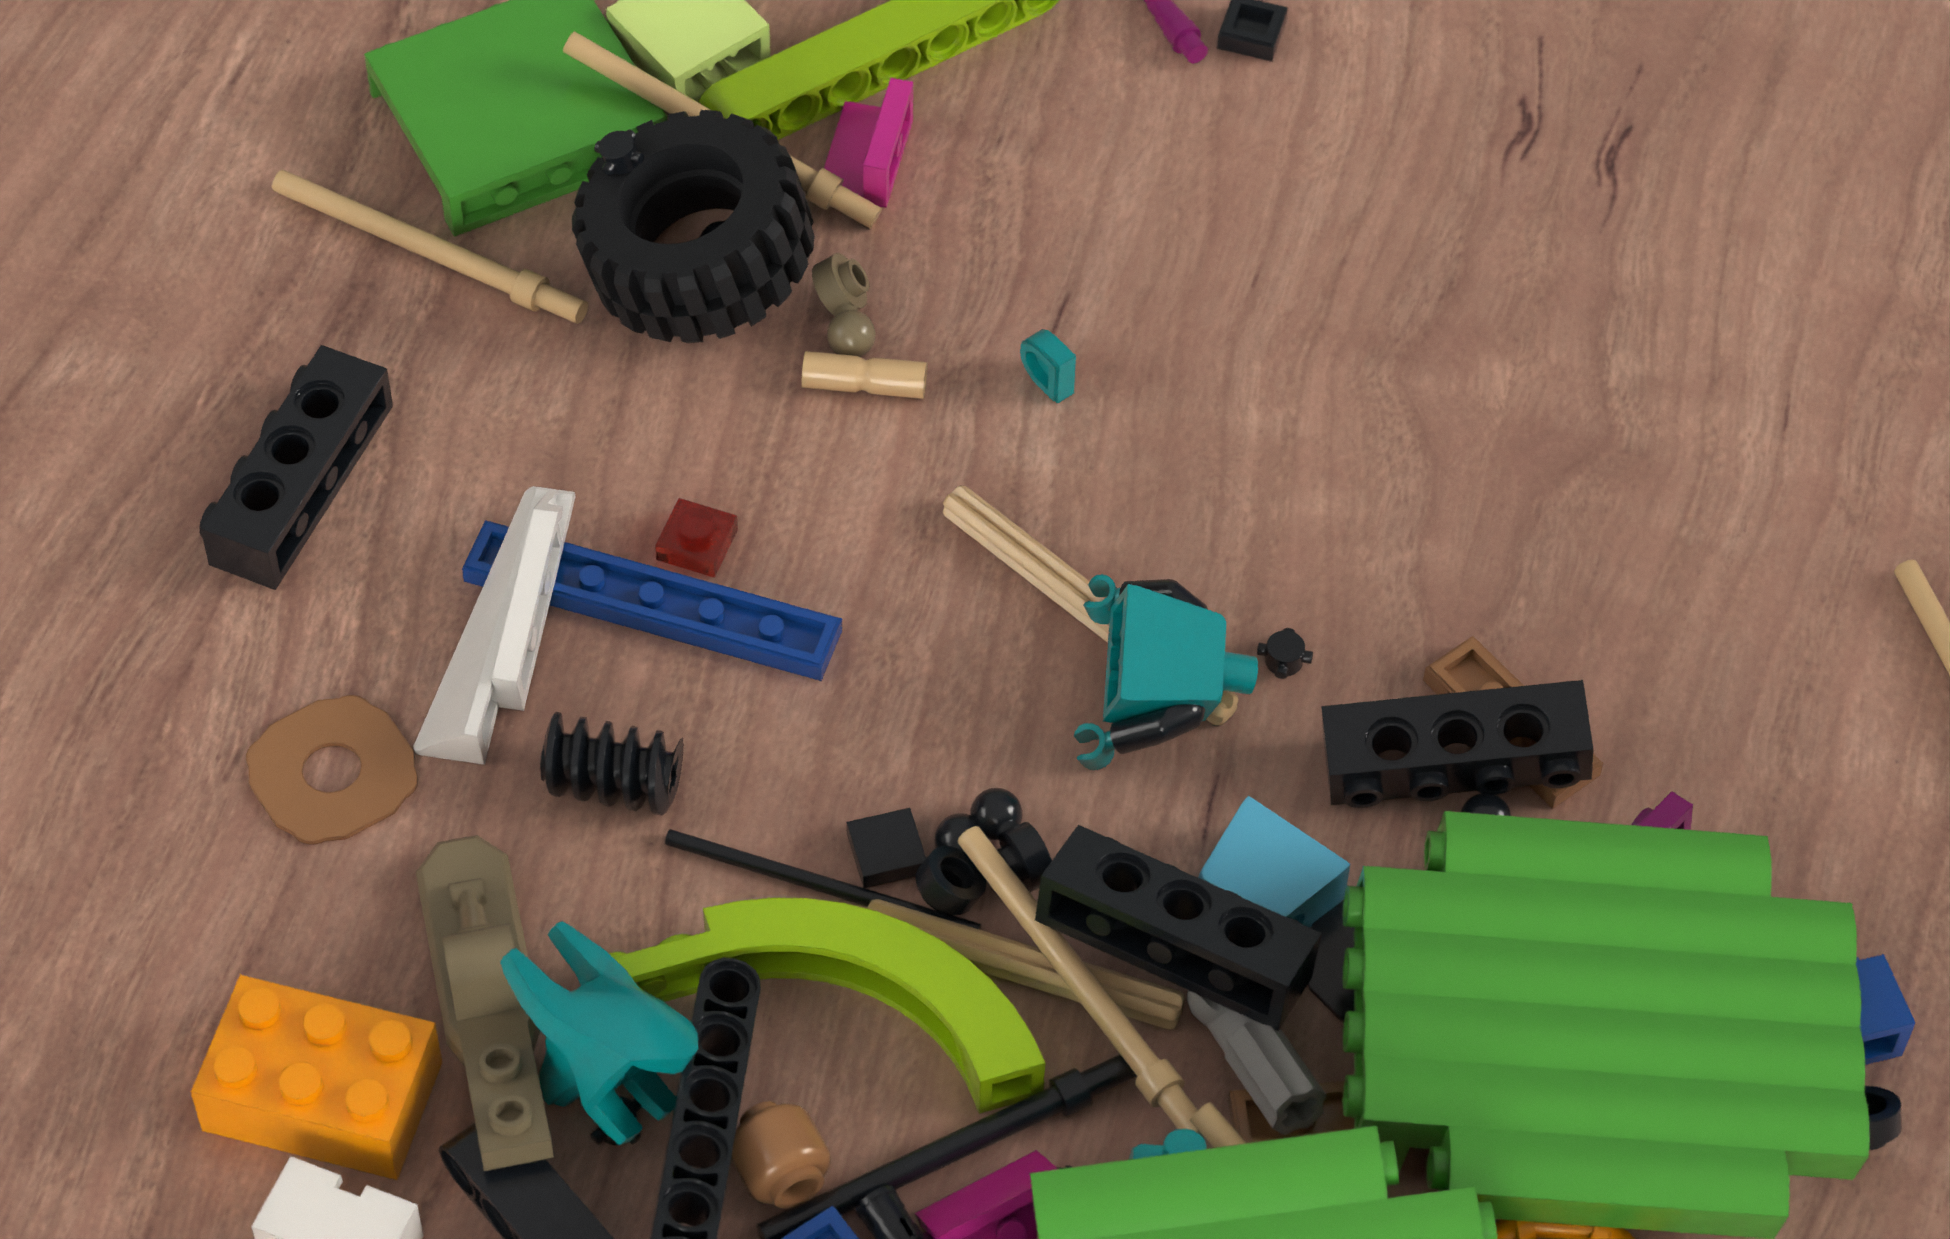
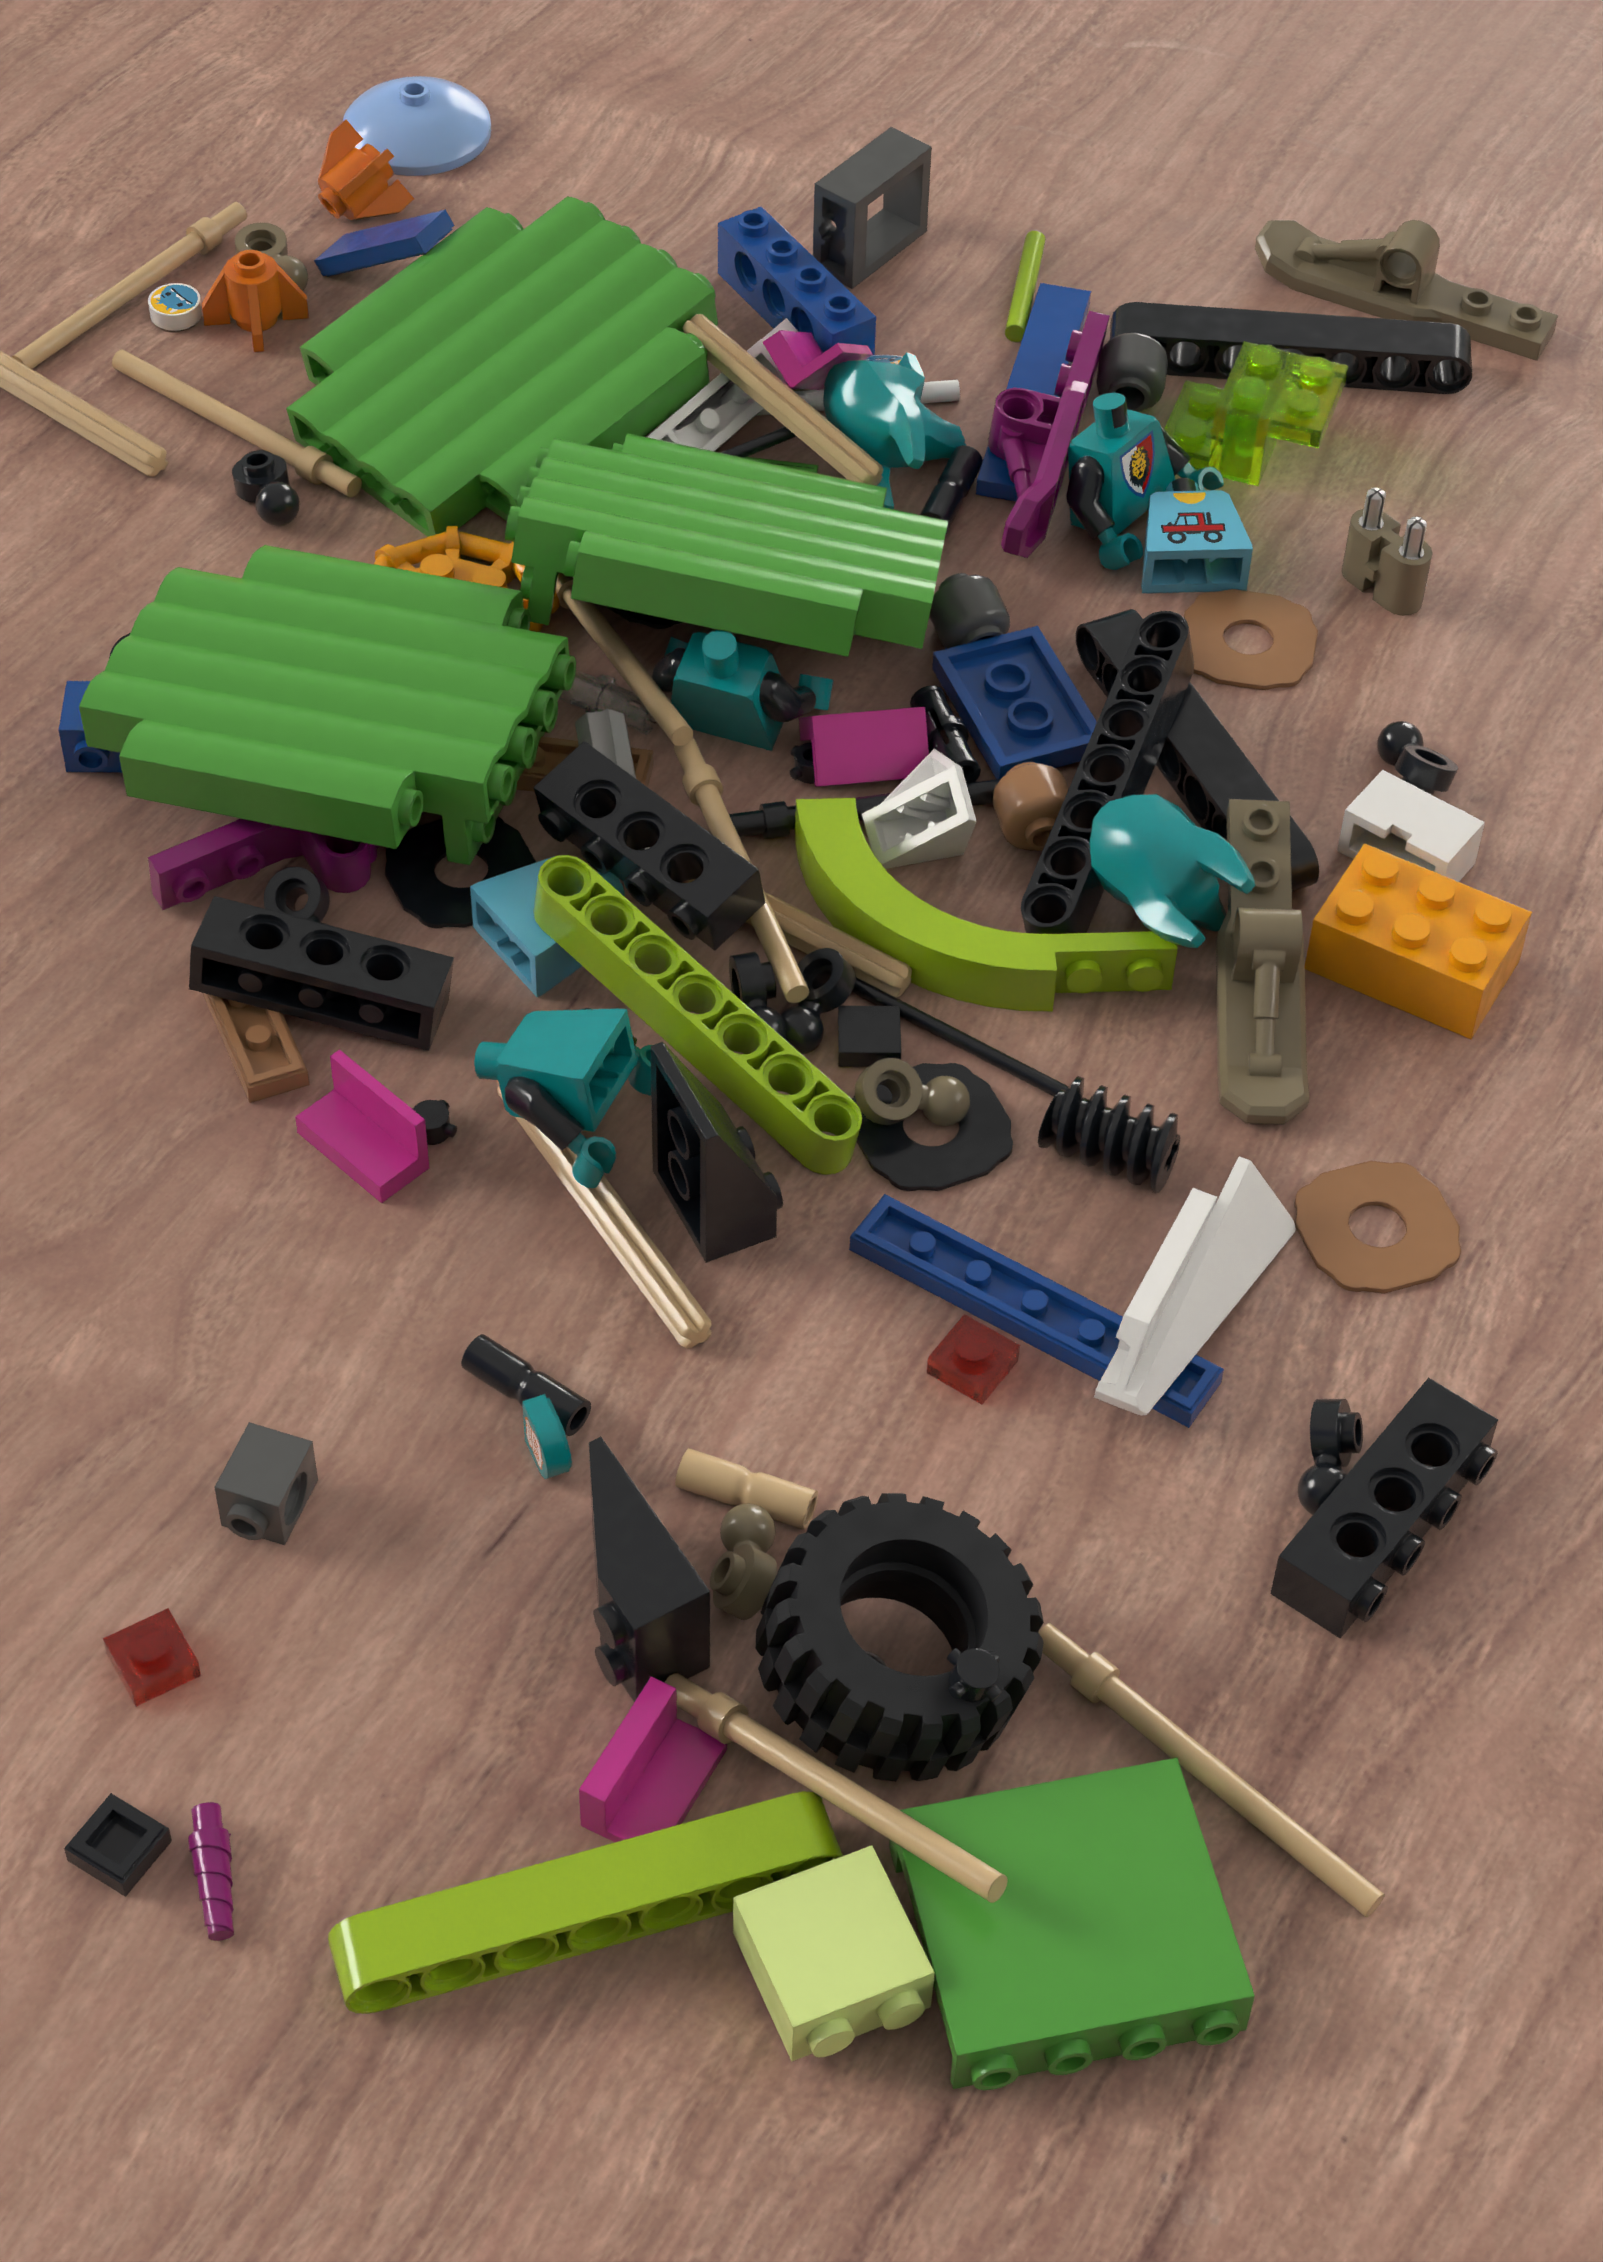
camera: 165 degrees left, 5 degrees down
(350, 515) = (1333, 1438): none -> black plate
(790, 822) = (973, 1153): none -> black piece
(837, 763) = (942, 1099): none -> dark tan plate
(900, 1111) = (923, 816): none -> white slope
(921, 236) = (648, 1593): none -> black slope
(991, 598) = (707, 1163): none -> black slope
(1066, 765) = (578, 912): none -> lime beam
(1095, 421) = (520, 1381): none -> black piece
(1267, 277) = (266, 1484): none -> dark grey brick
(1296, 152) = (152, 1657): none -> clear red plate
(1338, 617) = (366, 1130): none -> dark pink panel

